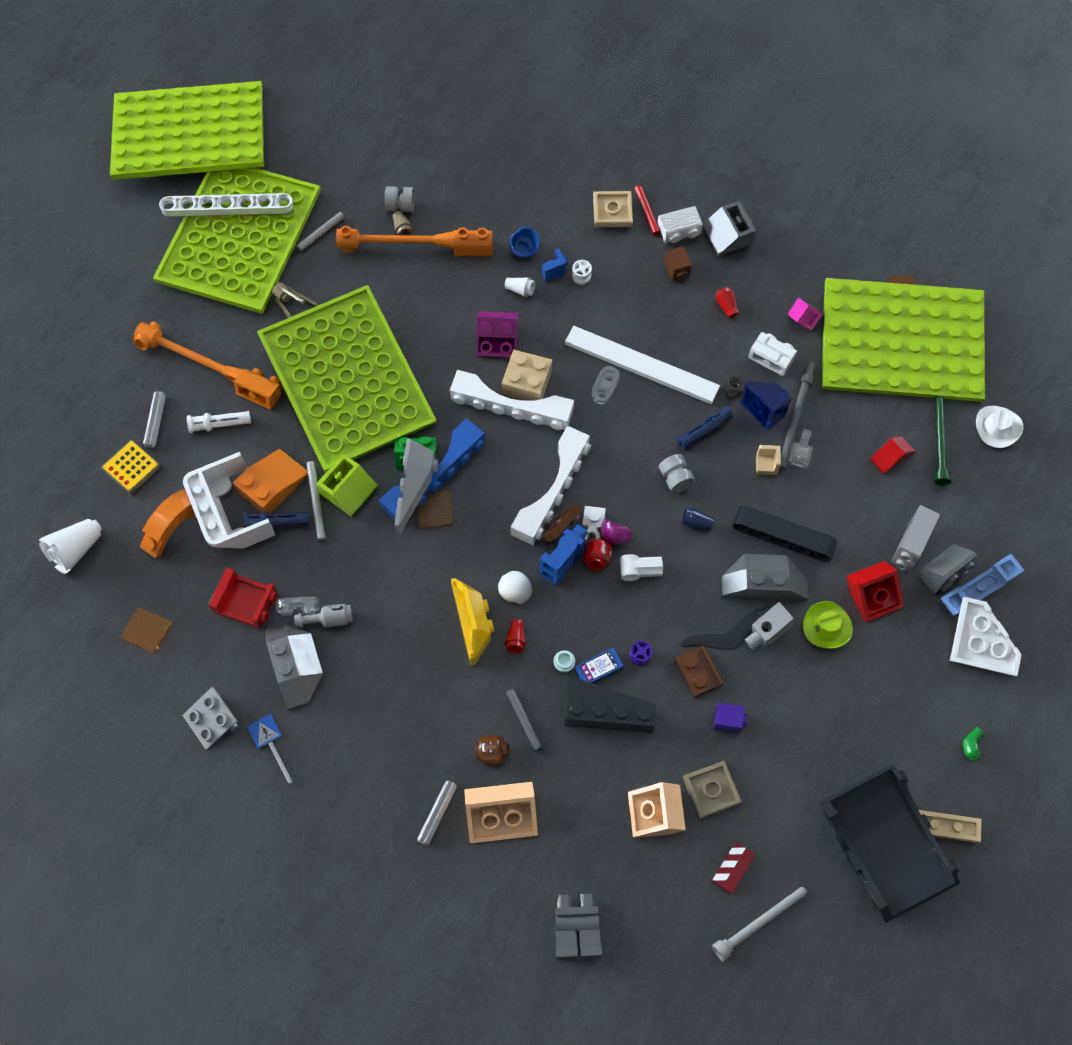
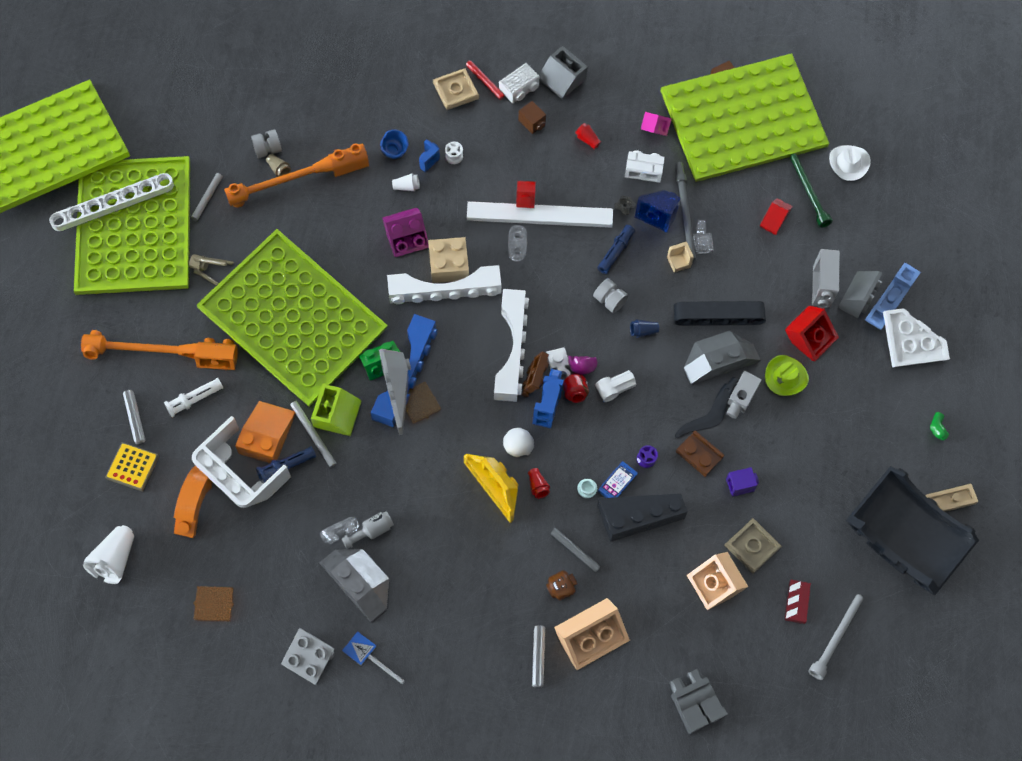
camera: 25 degrees left, 0 degrees up
(243, 599) = (289, 543): red panel -> none
(634, 338) = (525, 194): none -> red brick

